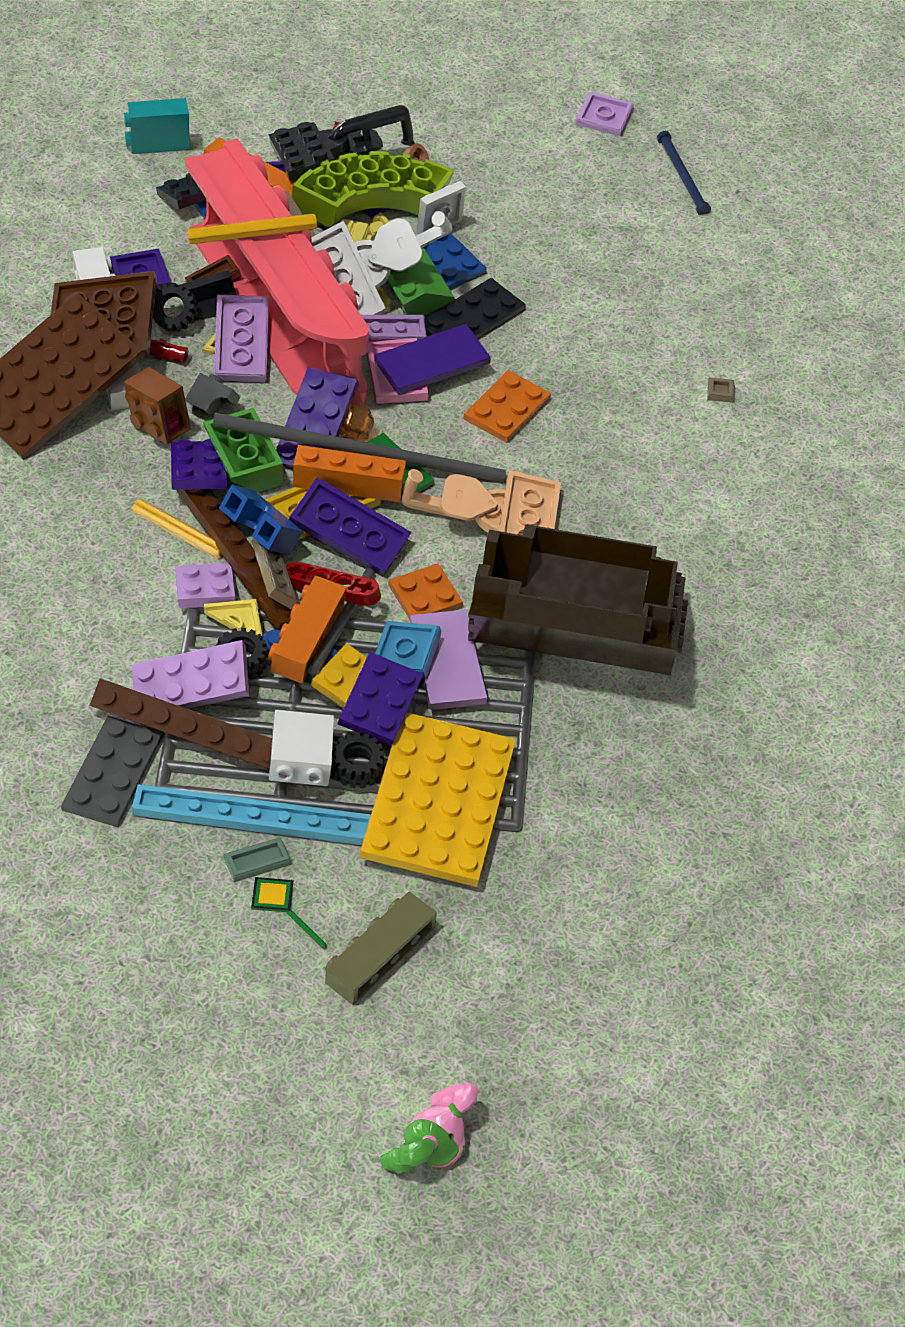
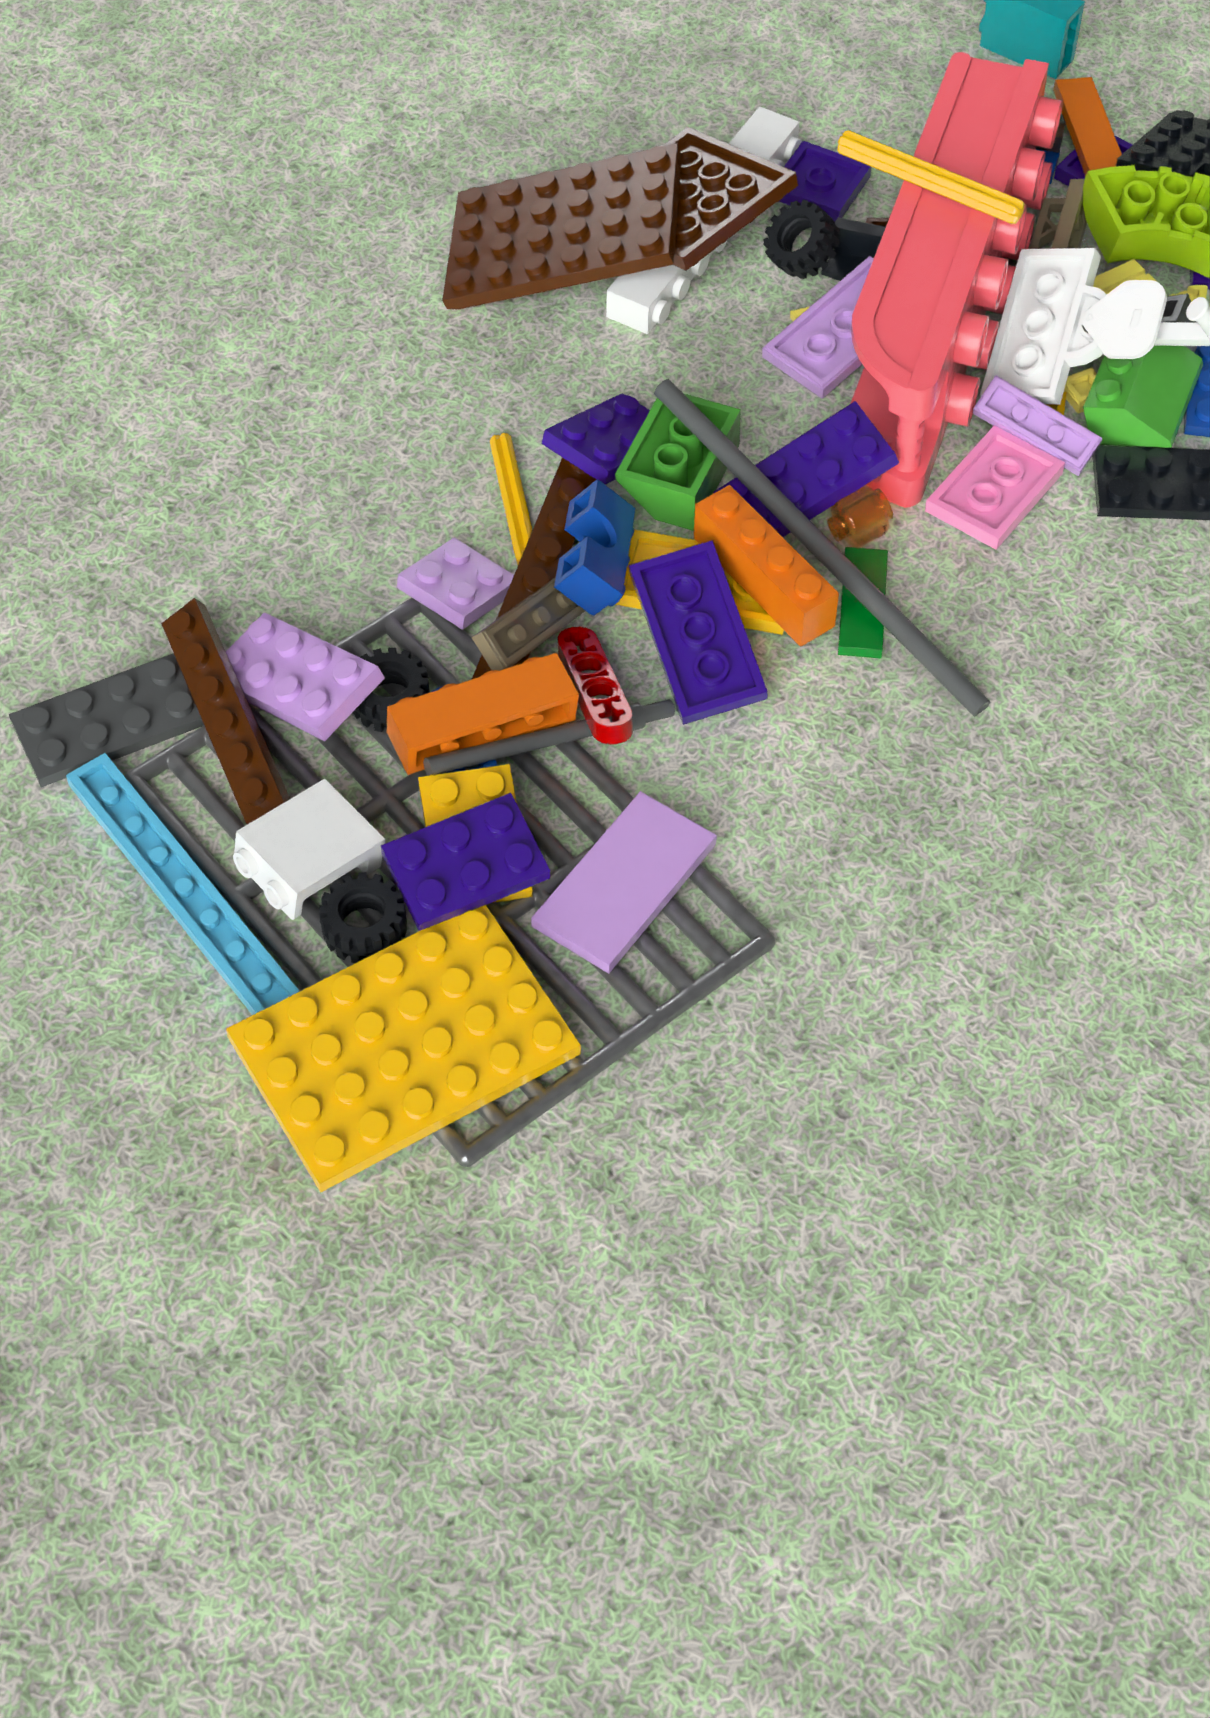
camera: 50 degrees right, 5 degrees up
(157, 405) = (634, 335): dark orange piece -> none
(165, 350) = (739, 281): red pin -> none
(210, 394) = (724, 367): dark grey brick -> none
(235, 614) = (446, 646): light yellow tile -> none
(257, 859) = (130, 945): sand green tile -> none
(276, 895) = (95, 1006): piece -> none
(380, 947) = (119, 1167): olive brick -> none
(409, 644) = (582, 827): dark azure plate -> none
(425, 591) = (707, 781): orange plate -> none
(432, 359) = (1049, 499): dark purple tile -> none
(507, 406) = (1092, 625): orange plate -> none
(524, 501) = (920, 782): light nougat plate -> none
(579, 599) = (873, 903): dark brown panel -> none

